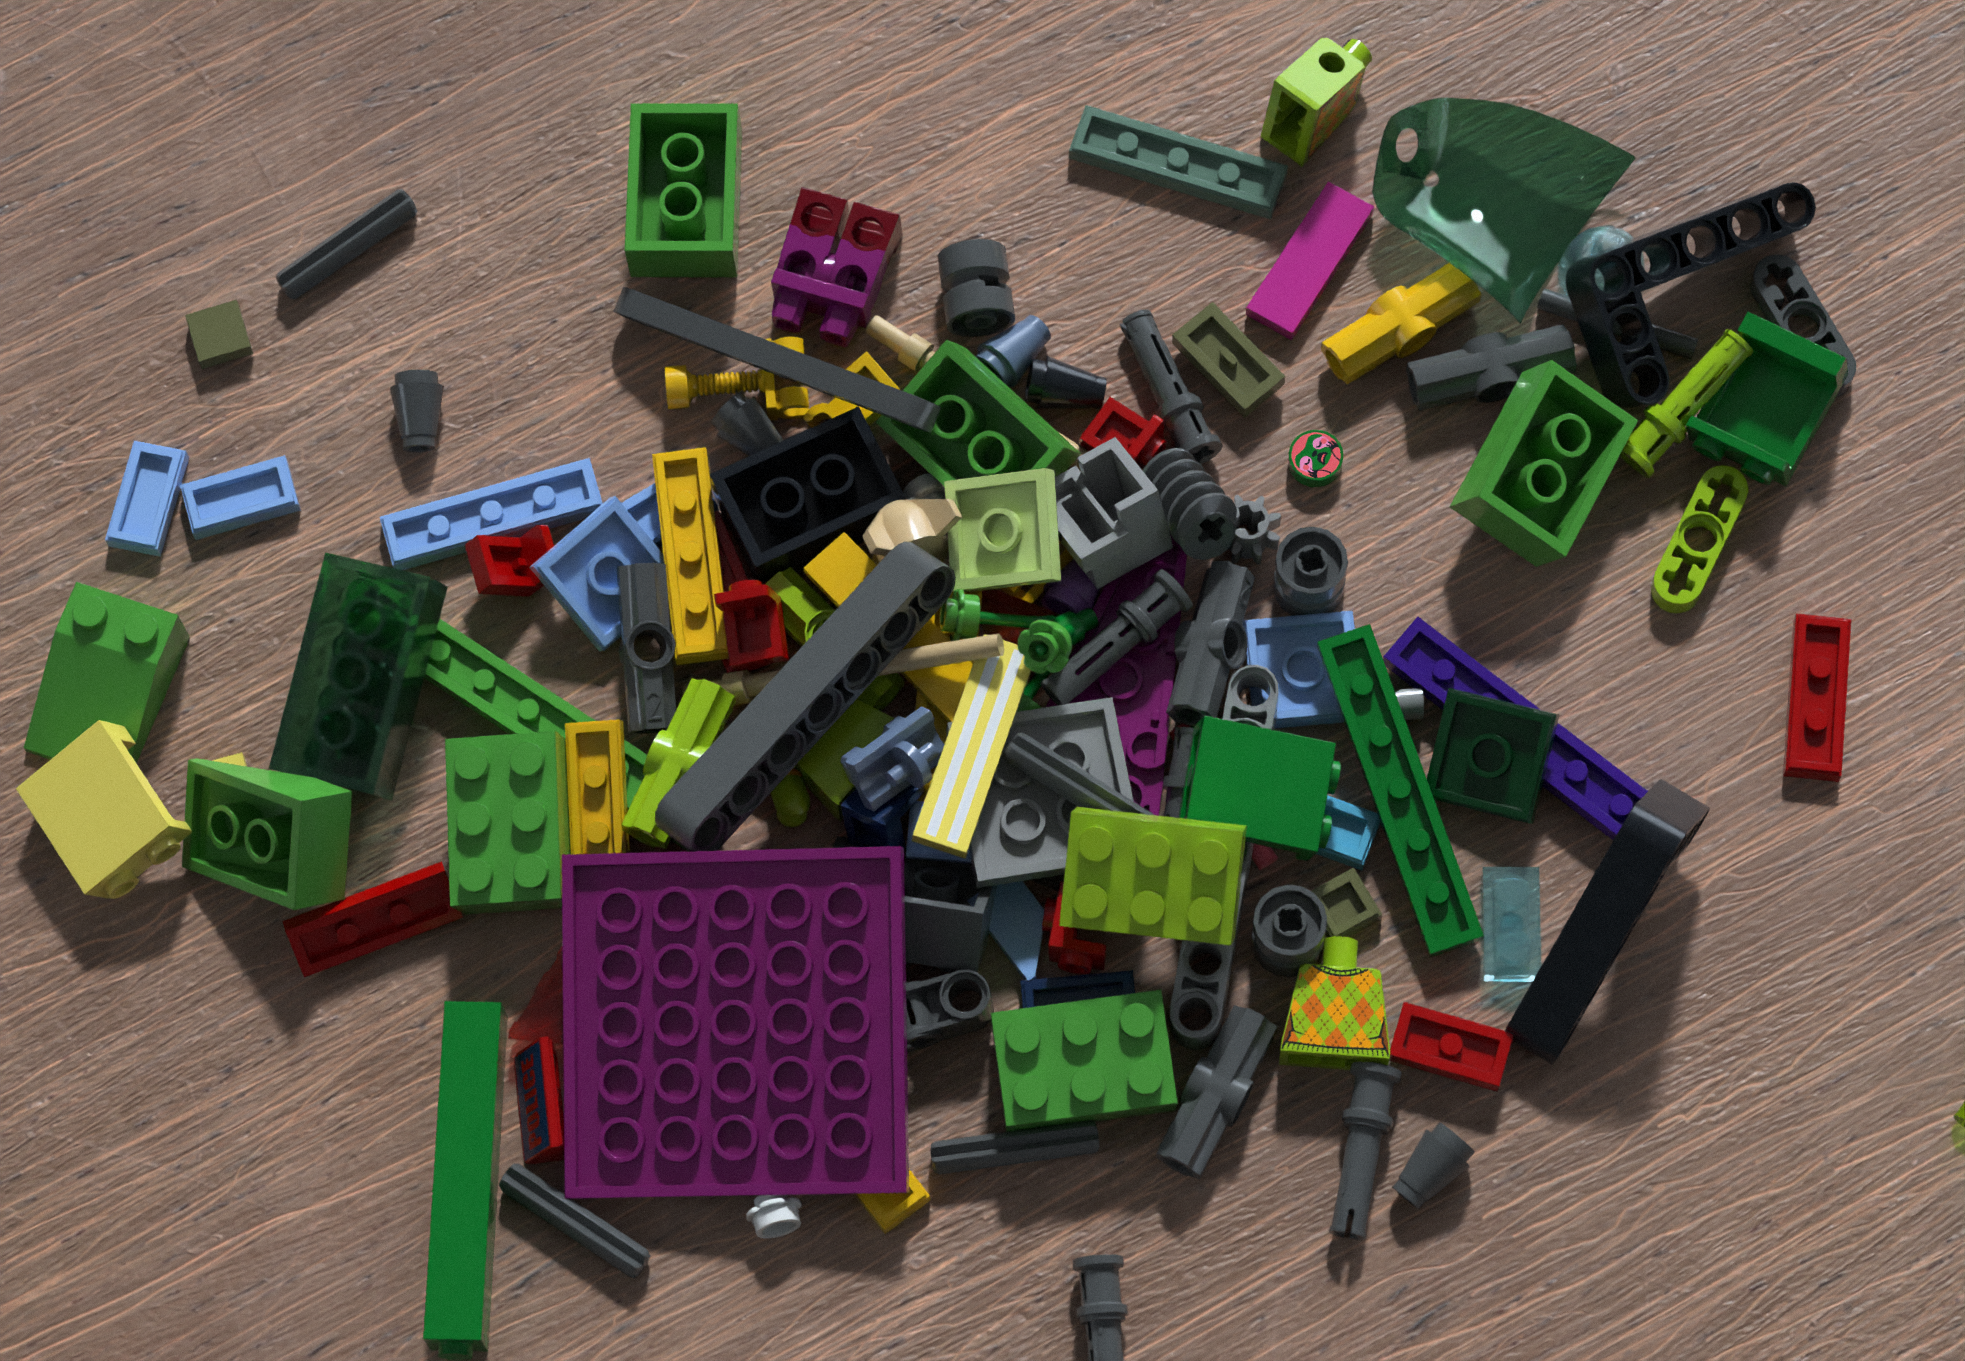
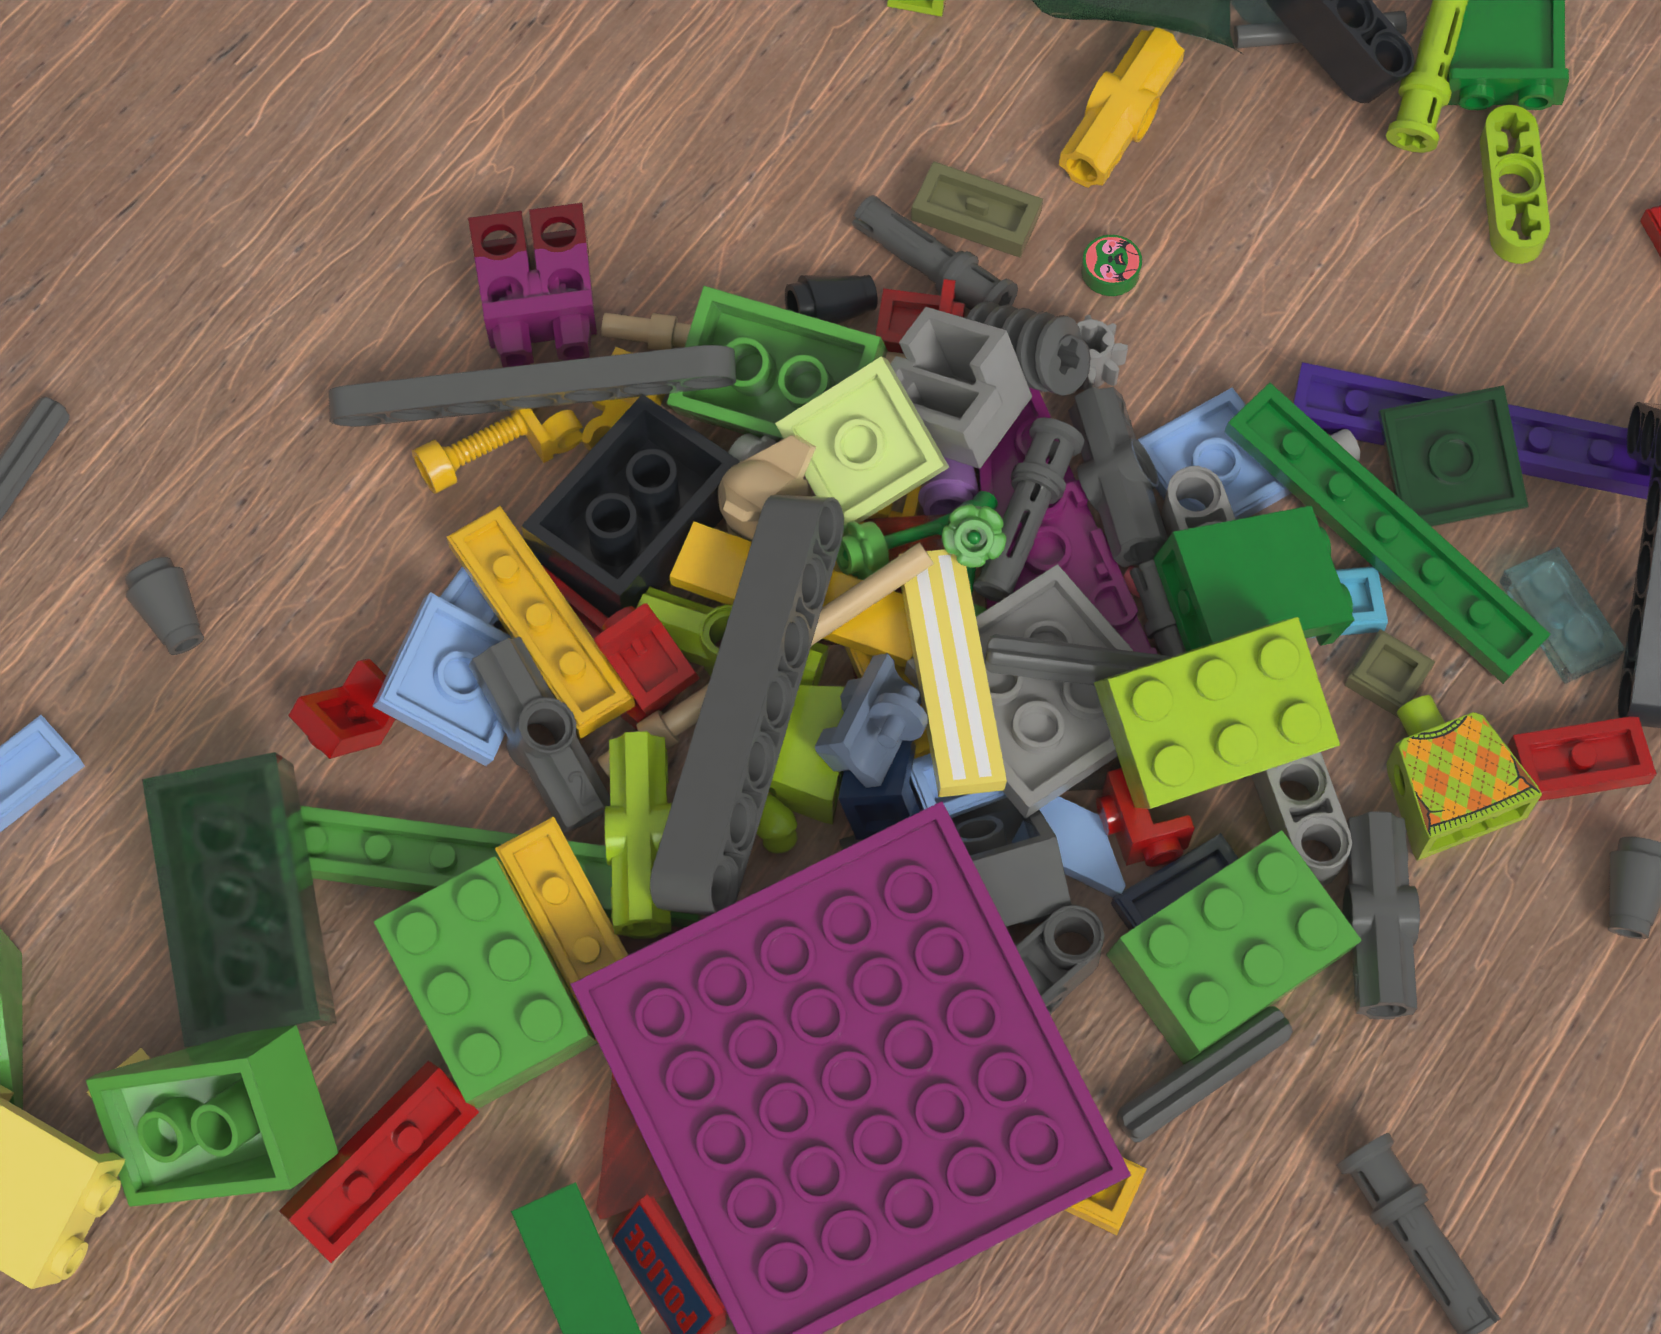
camera: 30 degrees left, 5 degrees down
(502, 509) = (317, 660): light blue tile -> none
(683, 190) = (346, 272): bright green brick -> none
(745, 425) = (526, 472): dark grey cone -> none
(774, 1215) = (993, 1272): white plate -> none
(976, 288) = (692, 243): dark grey wheel -> none
(1012, 350) = (764, 277): sand blue cone -> none
(1178, 162) = (823, 57): sand green tile -> none
(1288, 930) = (1368, 714): dark grey wheel -> none
(1309, 260) = (1000, 93): dark pink tile -> none
(1310, 572) = (1176, 364): dark grey wheel -> none
(1367, 1122) = (1548, 875): dark grey pin -> none
(1487, 366) = (1230, 112): dark grey piece -> none
(1544, 463) = (1342, 167): bright green brick -> none

